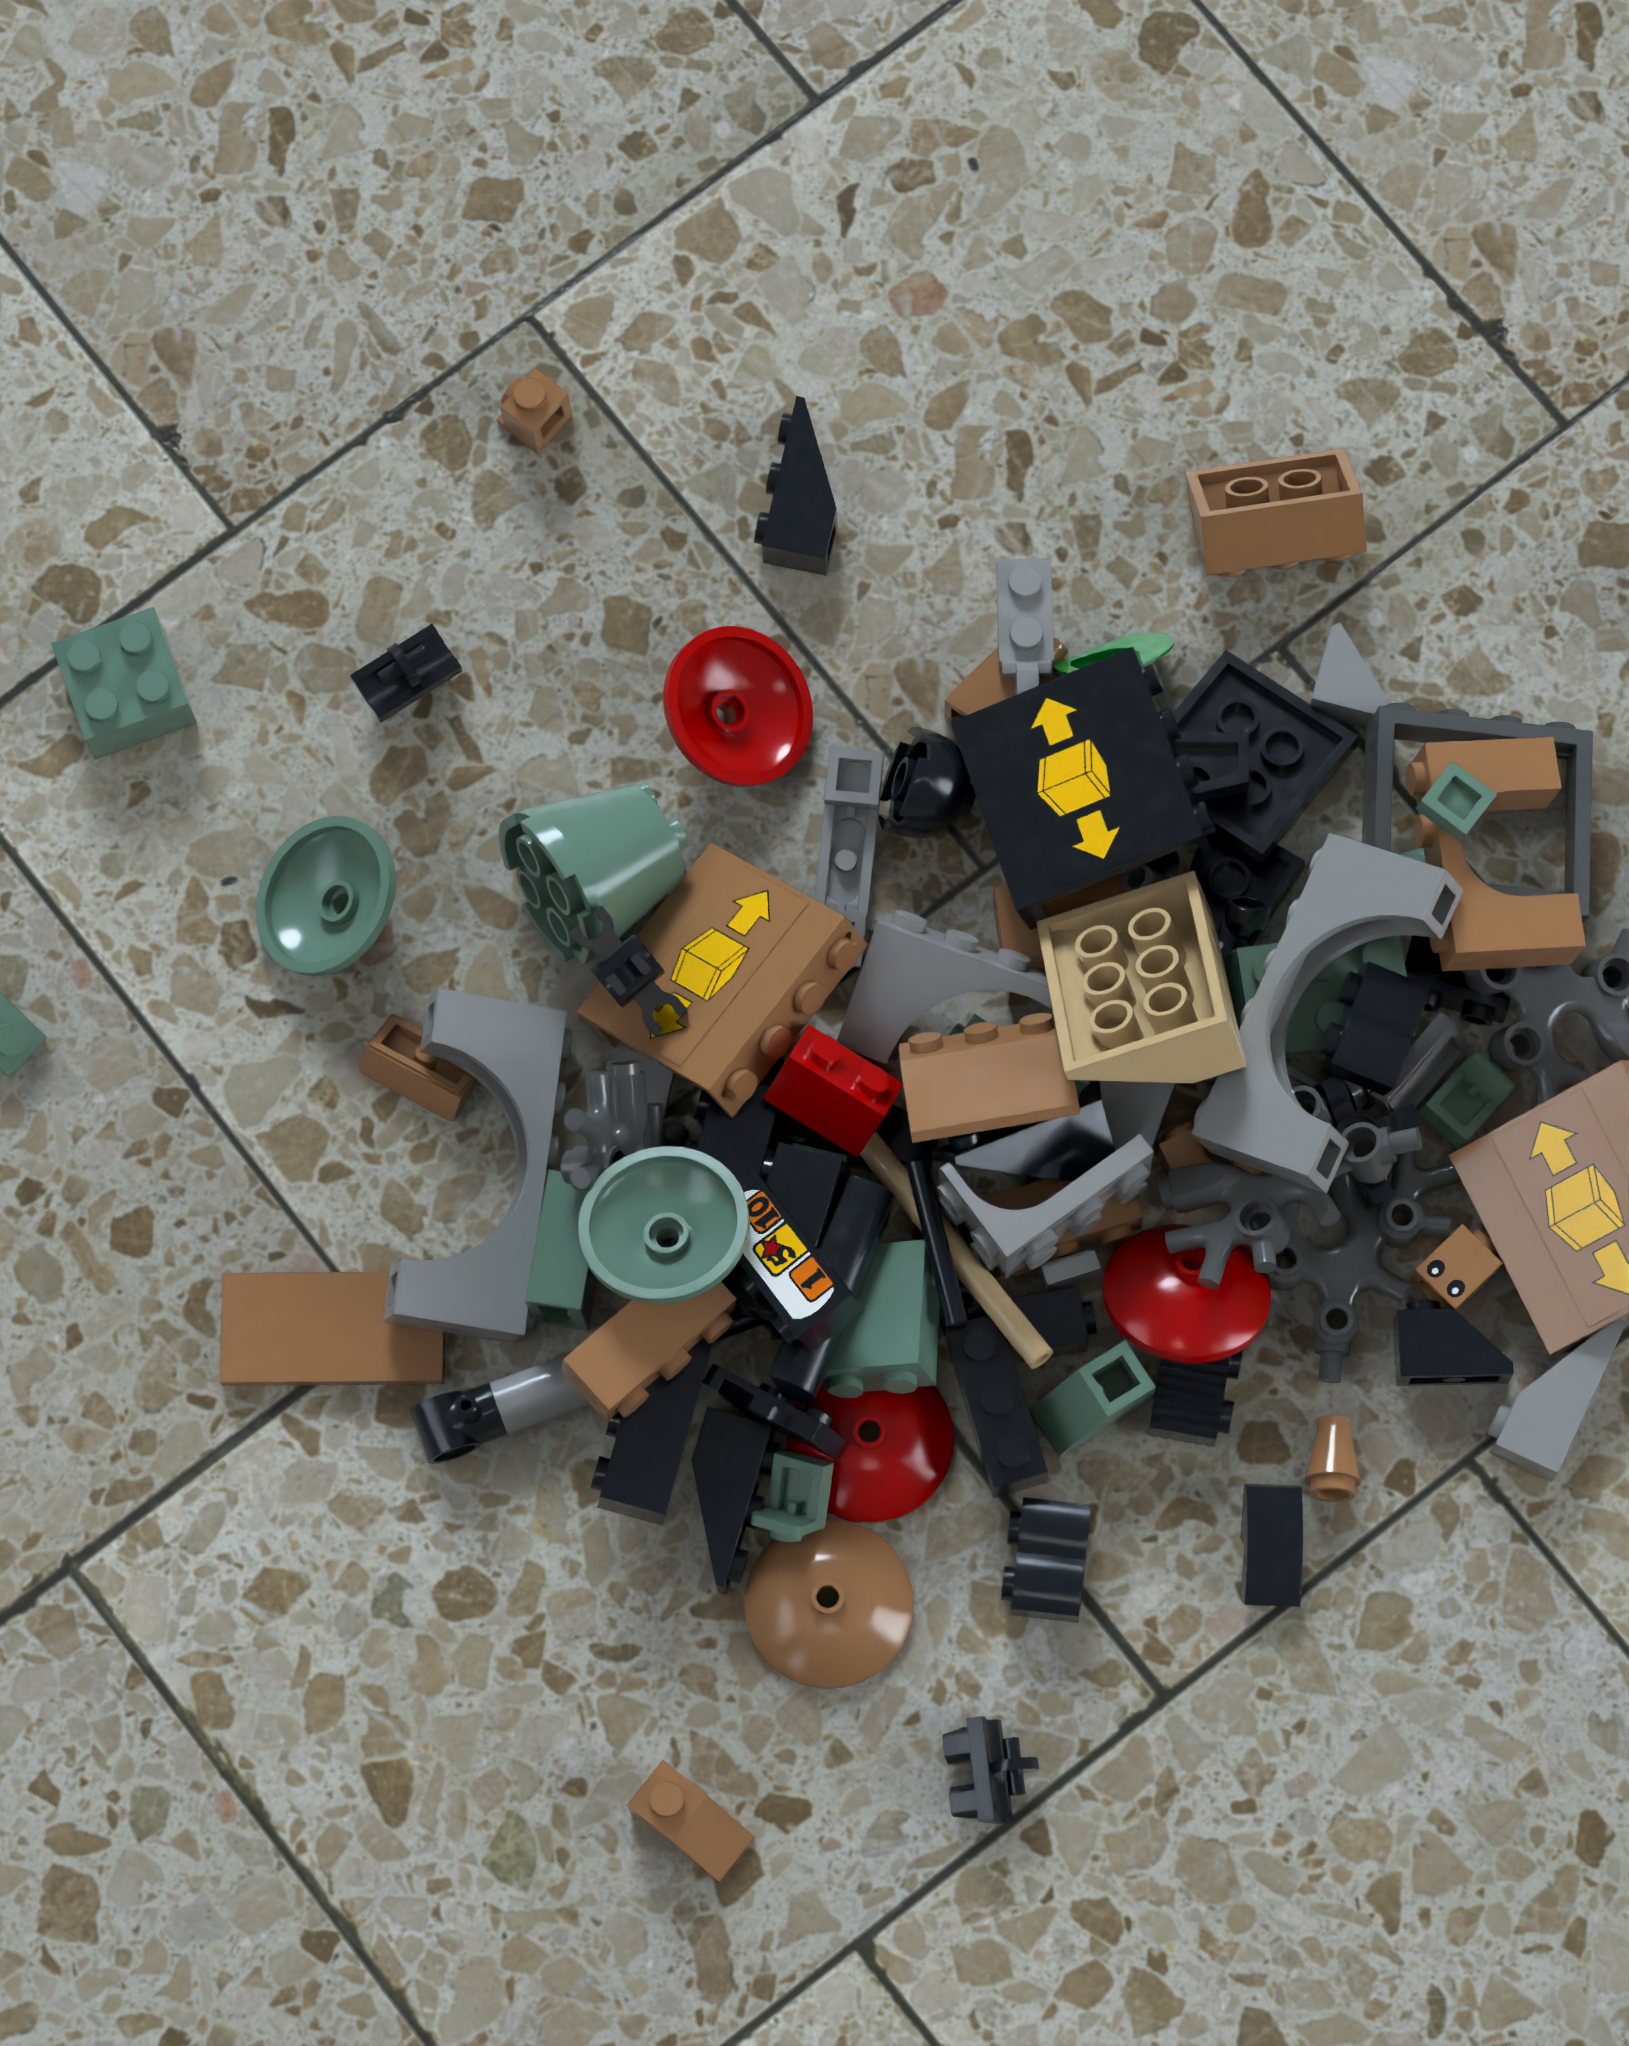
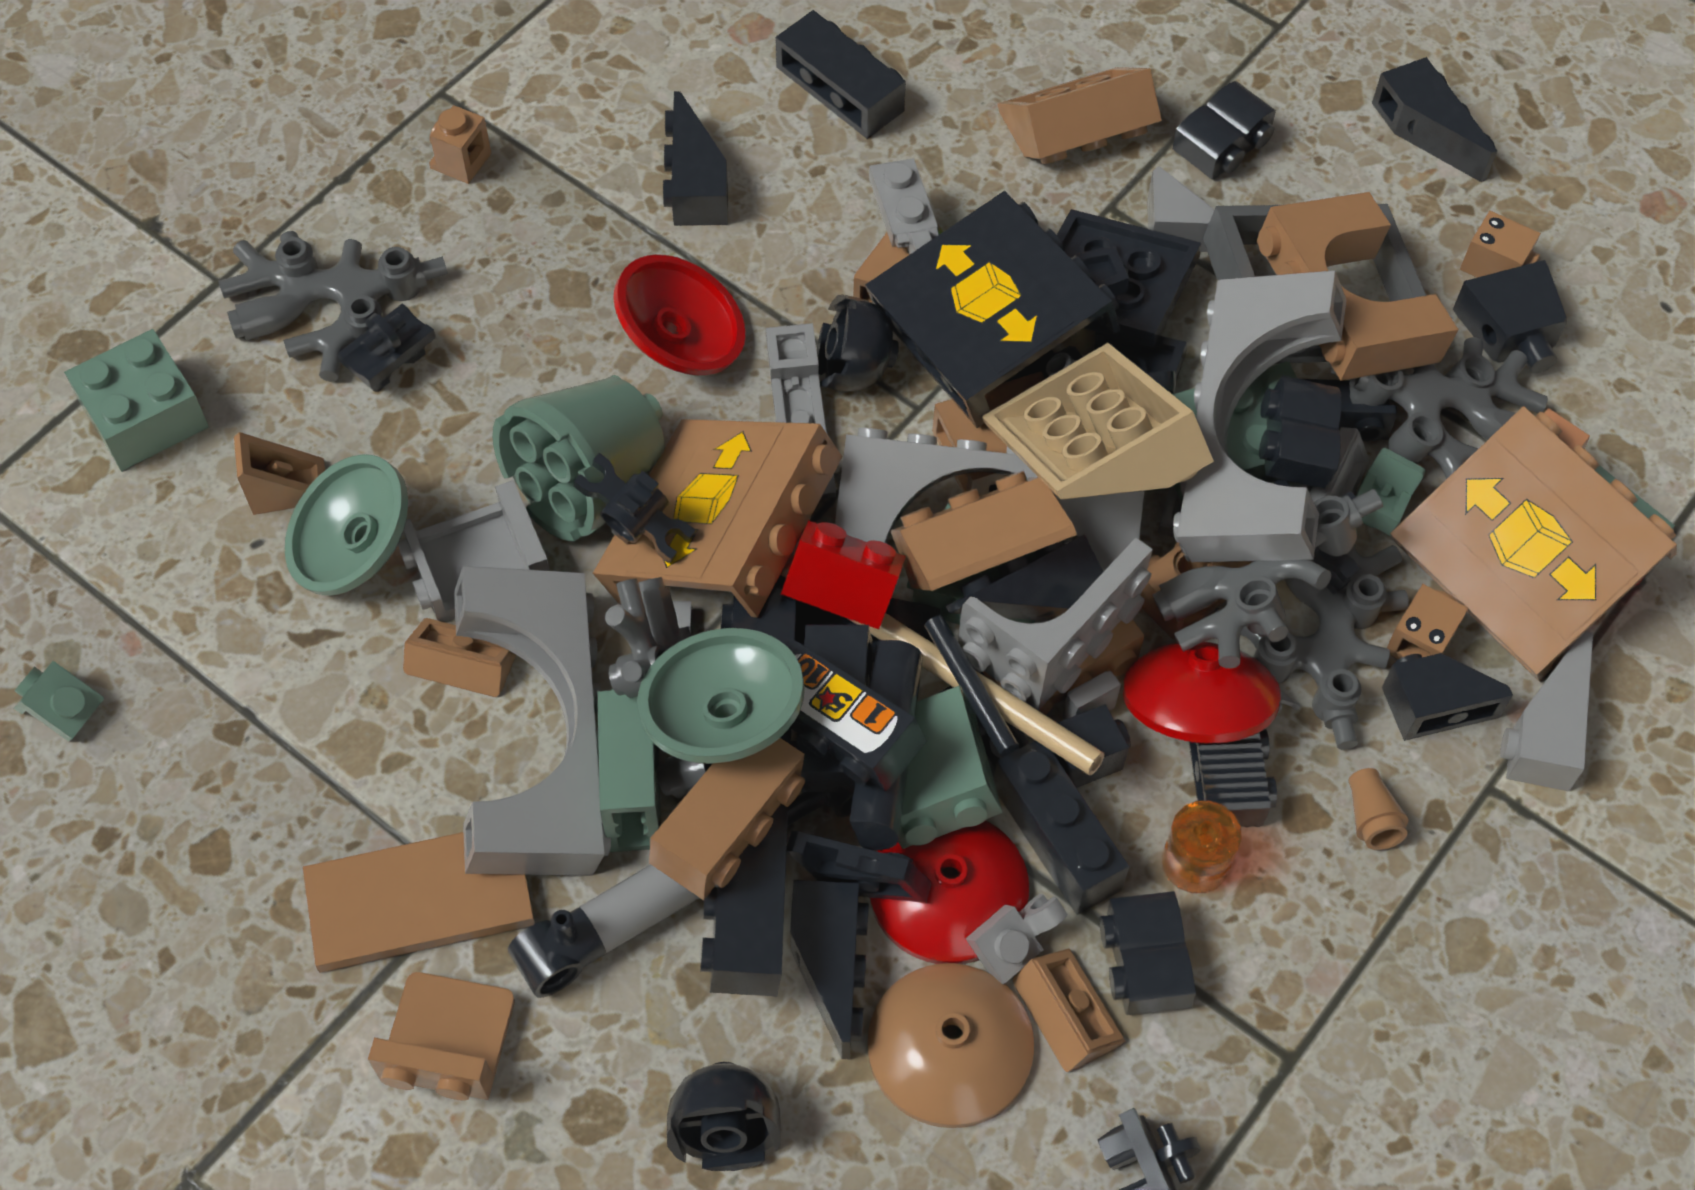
camera: 20 degrees left, 15 degrees down
(262, 809) = (272, 473): none -> medium nougat slope
(329, 561) = (302, 282): none -> dark grey plant
(334, 1484) = (445, 1037): none -> medium nougat bracket
(457, 947) = (486, 537): none -> light grey panel
(586, 1629) = (724, 1118): none -> black cylinder
(796, 1496) = (897, 945): sand green bracket -> none
(913, 1513) = (1008, 936): none -> light grey plate
(955, 1595) = (1067, 1009): none -> medium nougat slope
(1005, 397) = (840, 74): none -> black brick
(1093, 1398) = (1150, 796): sand green slope -> none
(1133, 1462) = (1201, 846): none -> clear orange wheel
(1272, 1545) = (1350, 895): black slope -> none
(1442, 575) = (1224, 130): none -> black brick
(1456, 801) = (1316, 235): sand green plate -> none

